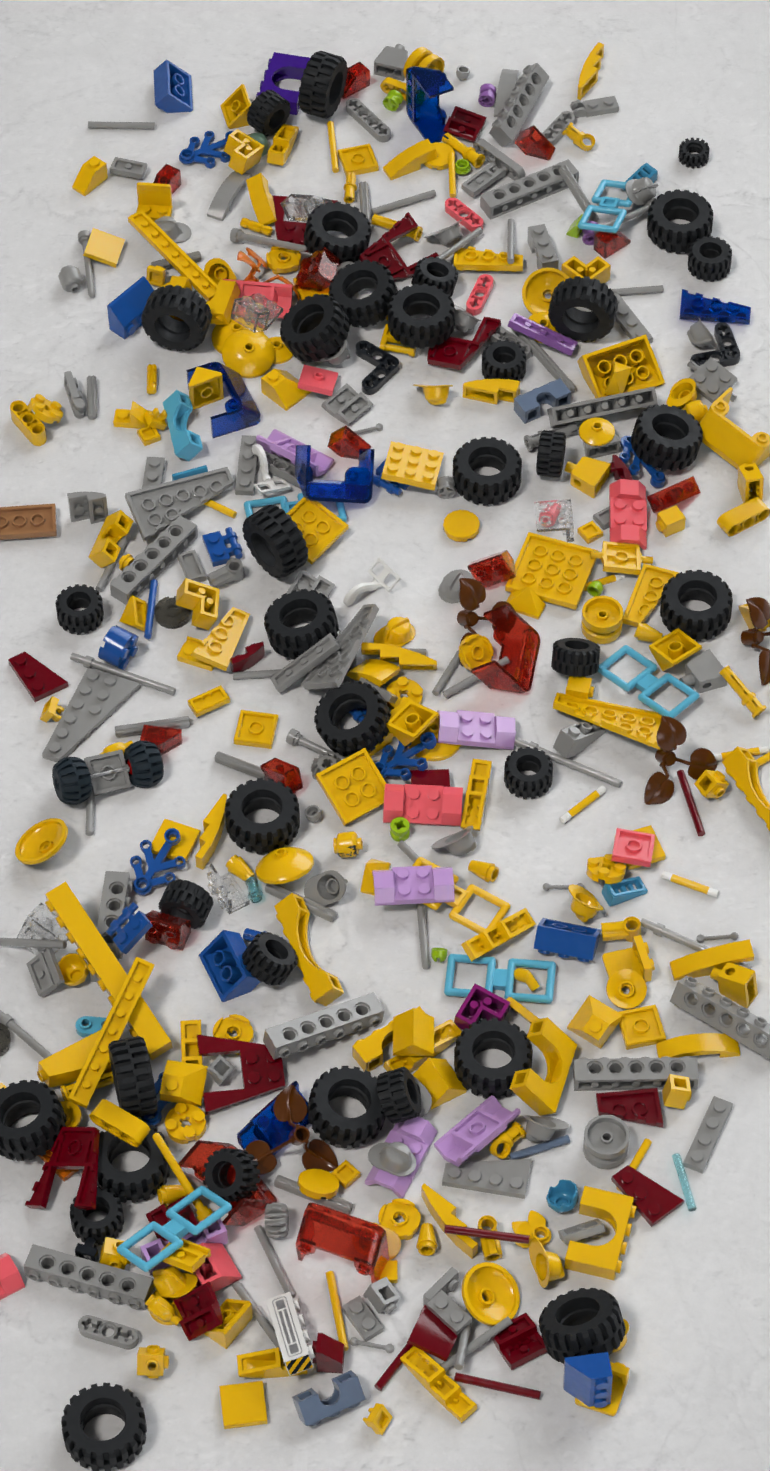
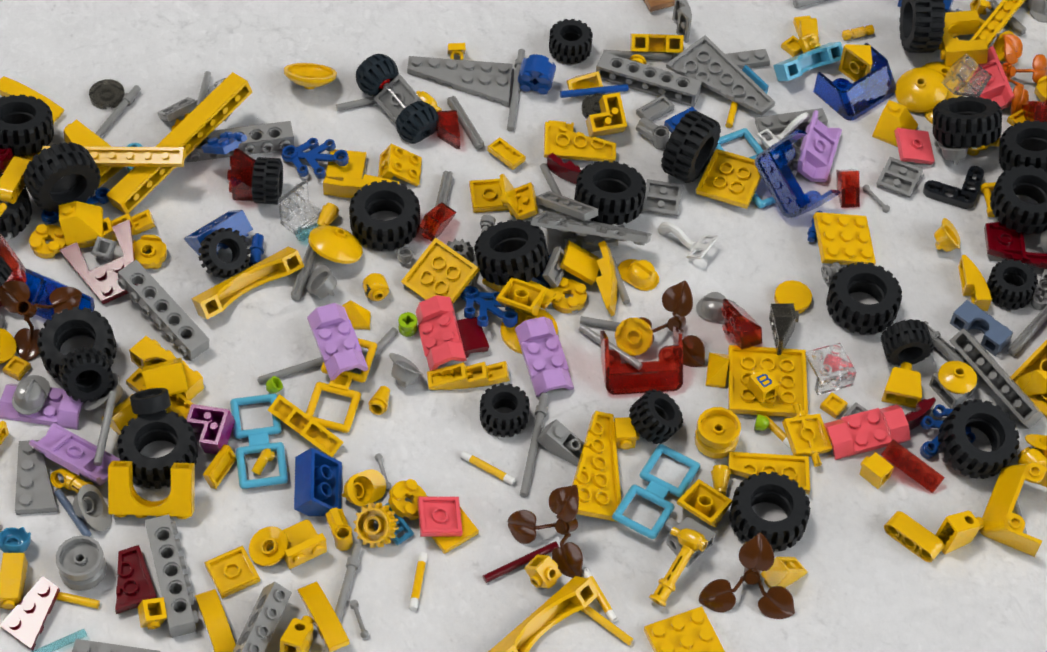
camera: 70 degrees right, 0 degrees up
(36, 677) = (490, 35): dark red wing -> none
(193, 795) = (401, 164): none -> yellow bracket
(277, 700) = (519, 200): none -> yellow bracket
(456, 1049) = (150, 401): none -> black tyre
(460, 1094) = (105, 428): none -> light grey bar
(495, 538) = (782, 322): none -> clear smoke slope
(564, 570) = (763, 385): none -> yellow brick
(595, 1021) = (222, 528): yellow slope -> none
(639, 893) = (386, 523): none -> yellow gear
(713, 665) = (690, 538): none -> yellow plant

